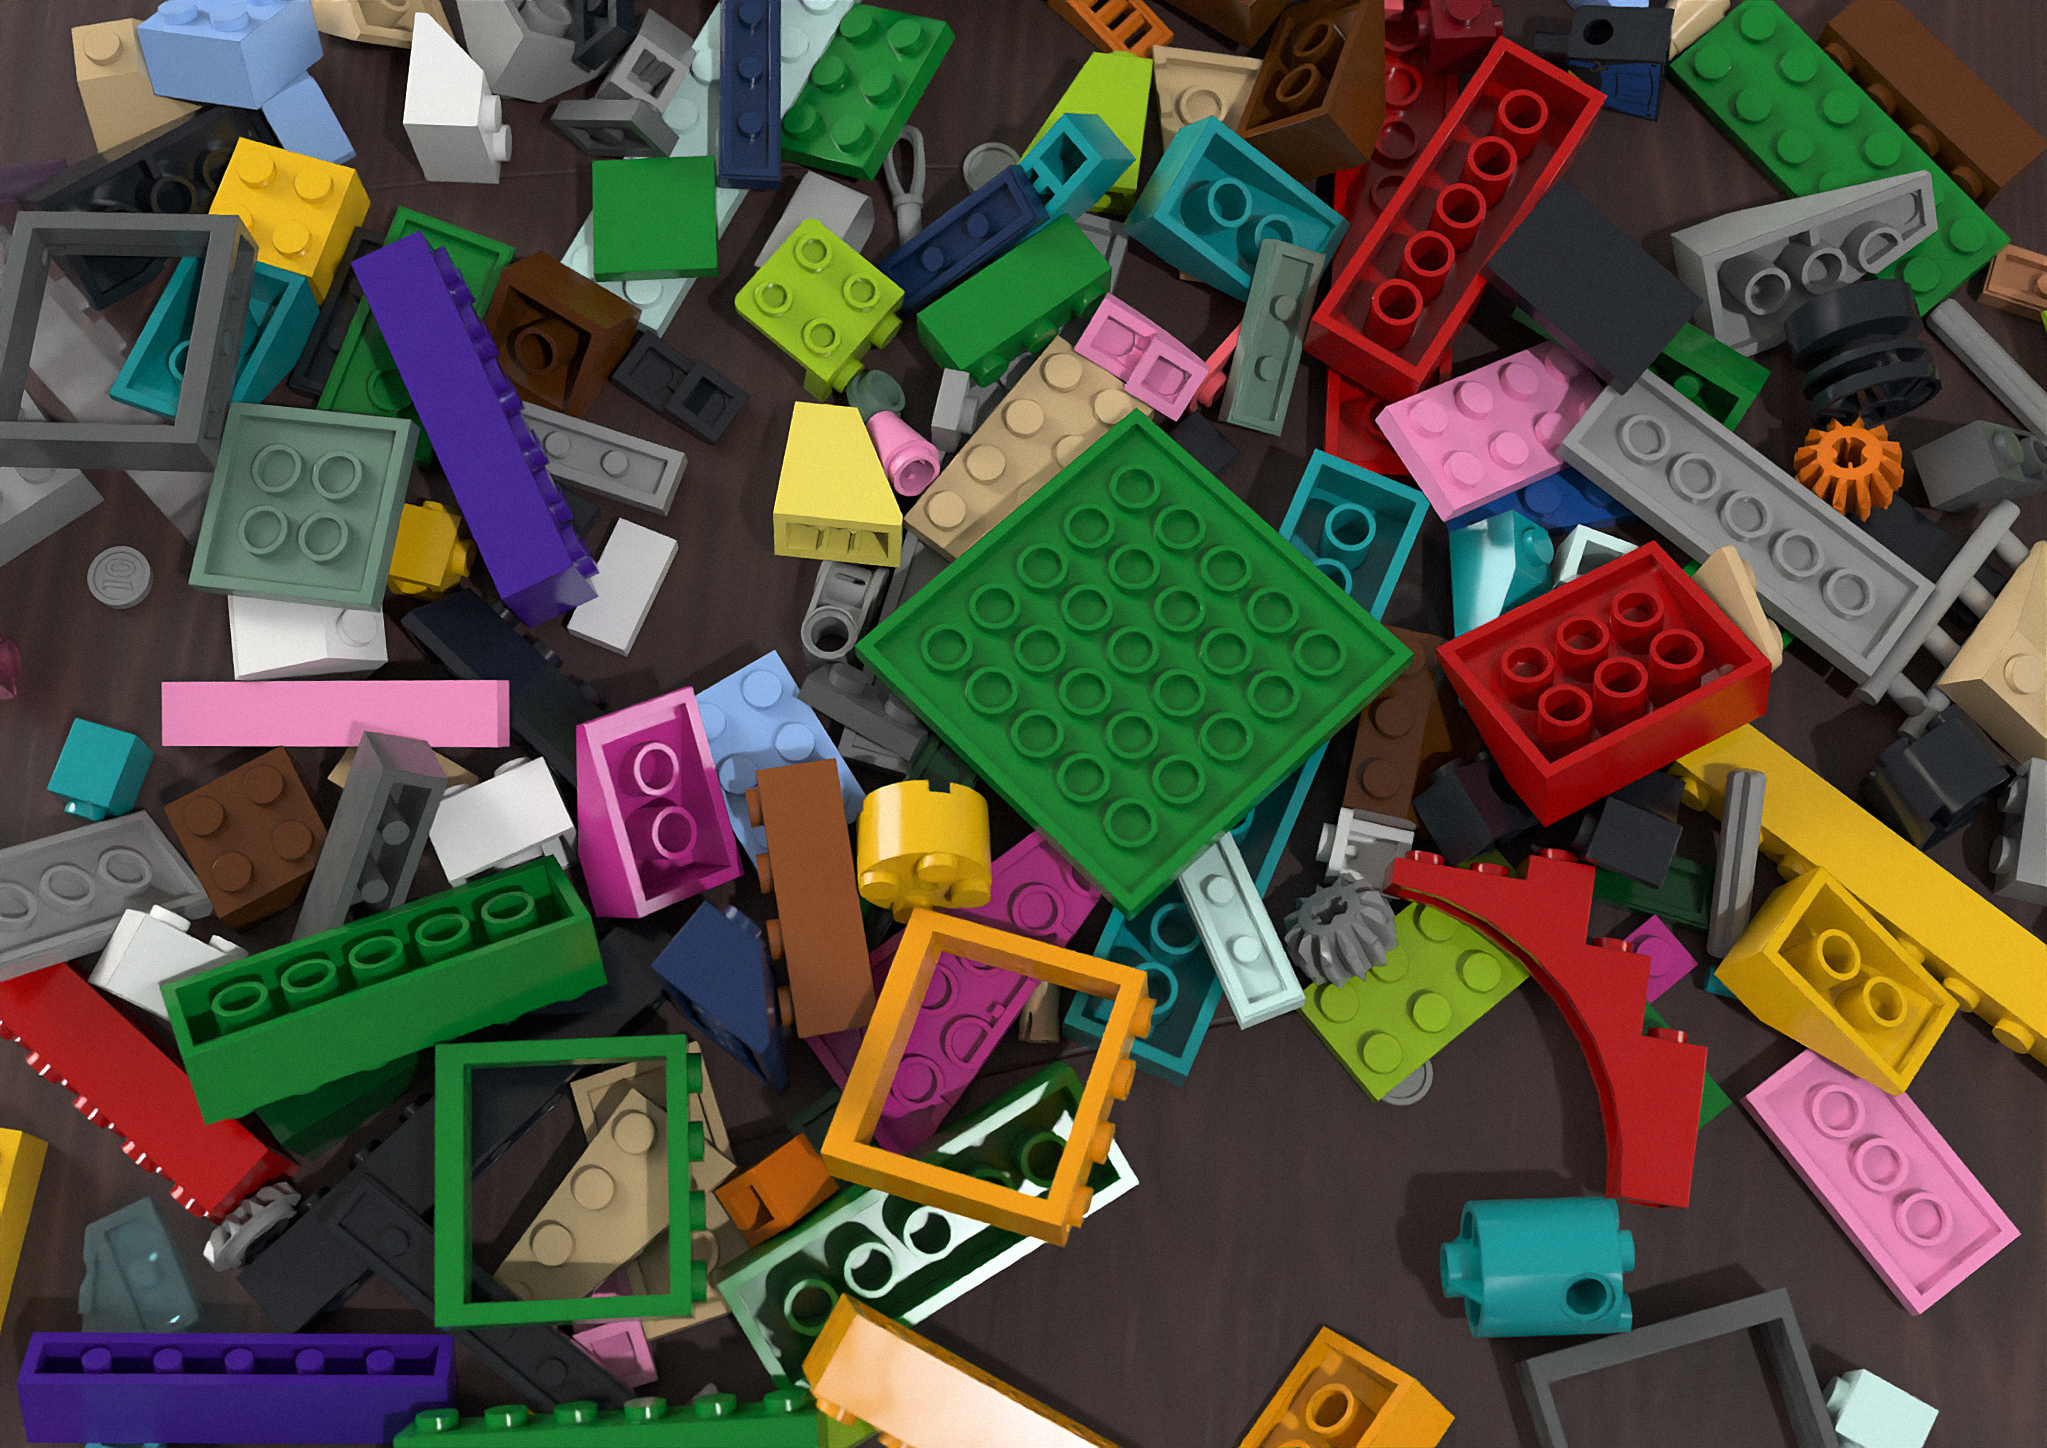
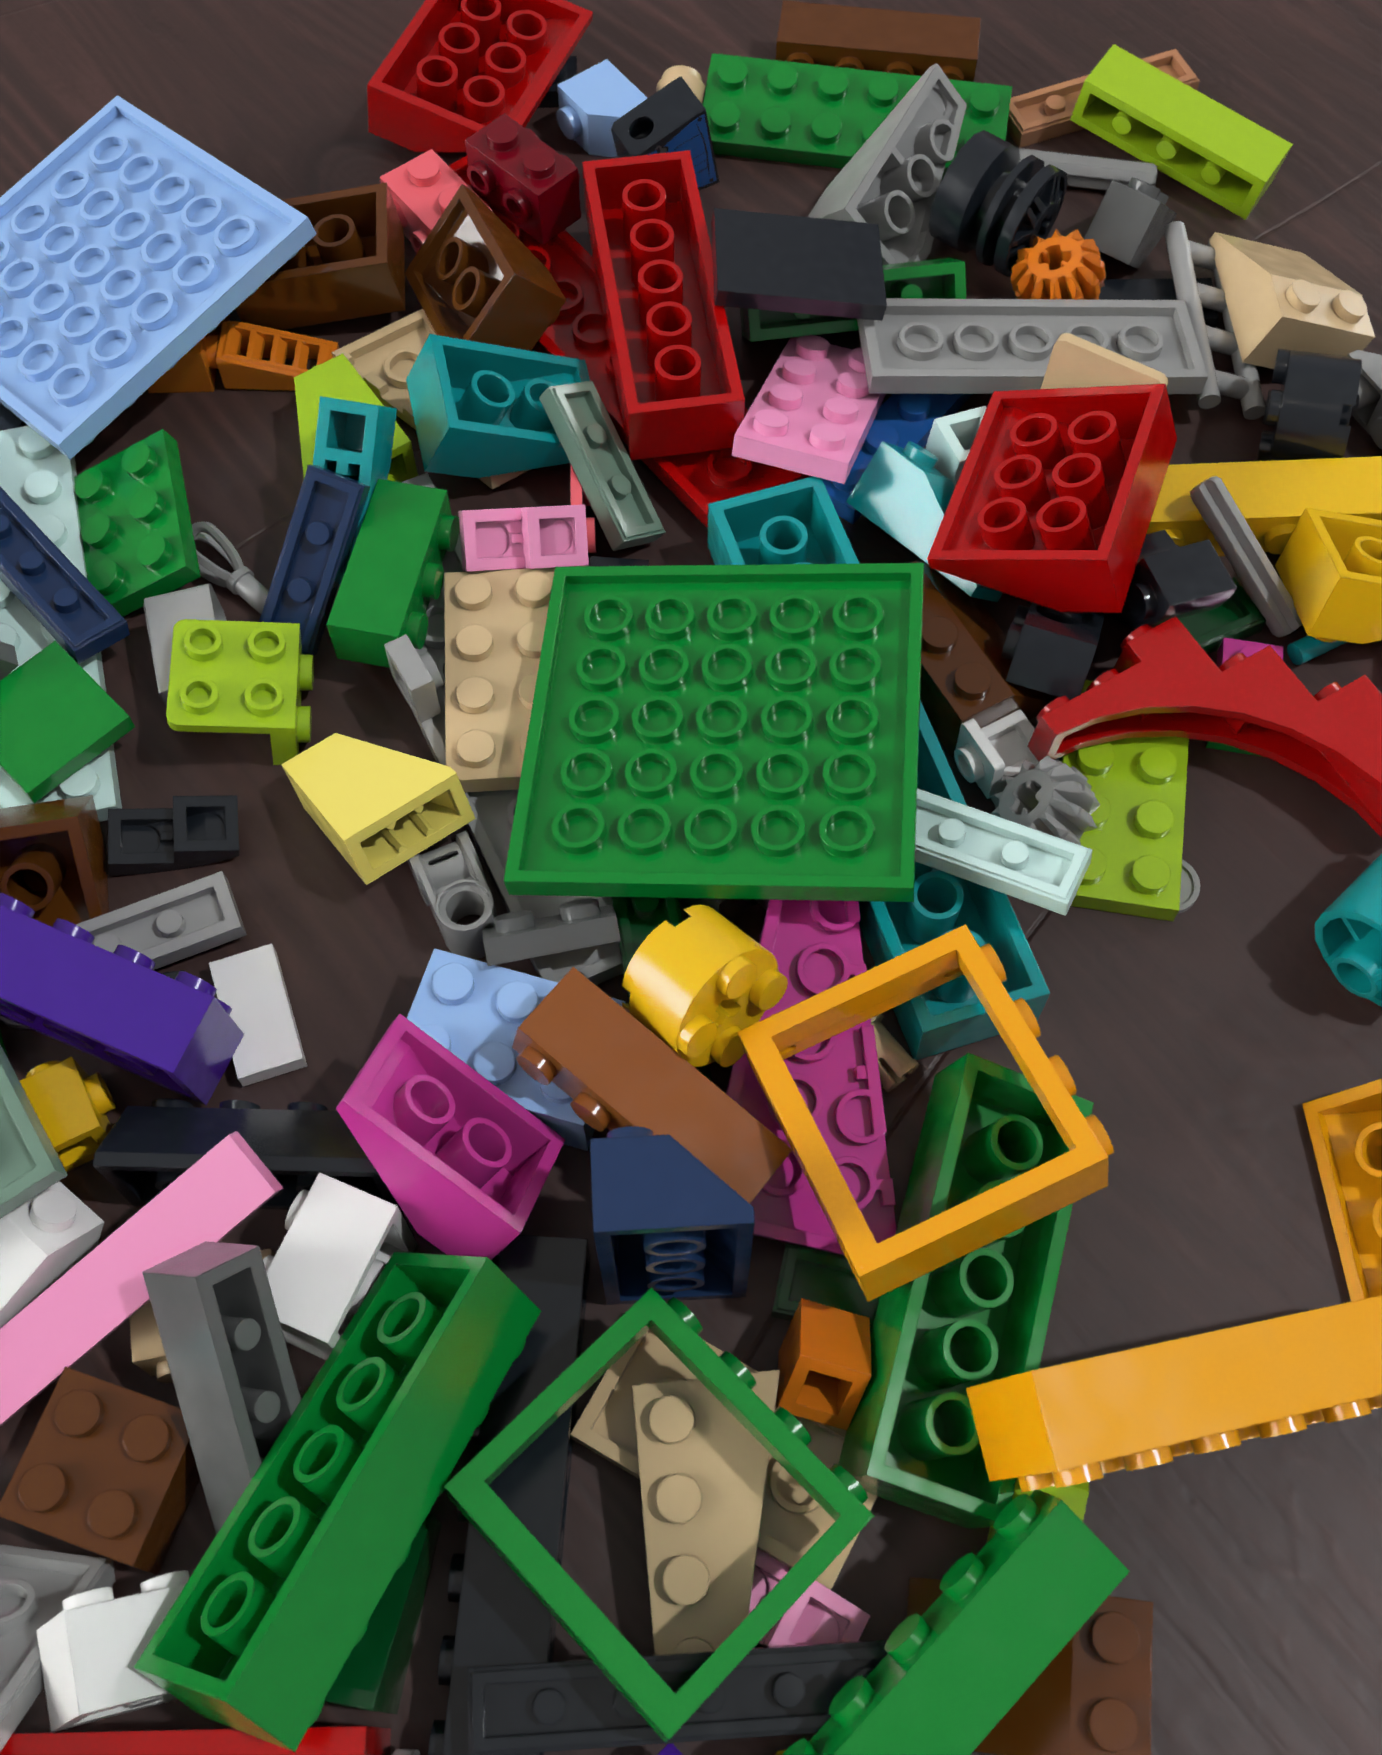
camera: 40 degrees left, 10 degrees down
(874, 394) = (341, 719): sand green plate -> none
(905, 455) = (407, 732): bright pink cone -> none
(986, 162) = (275, 516): light grey piece -> none

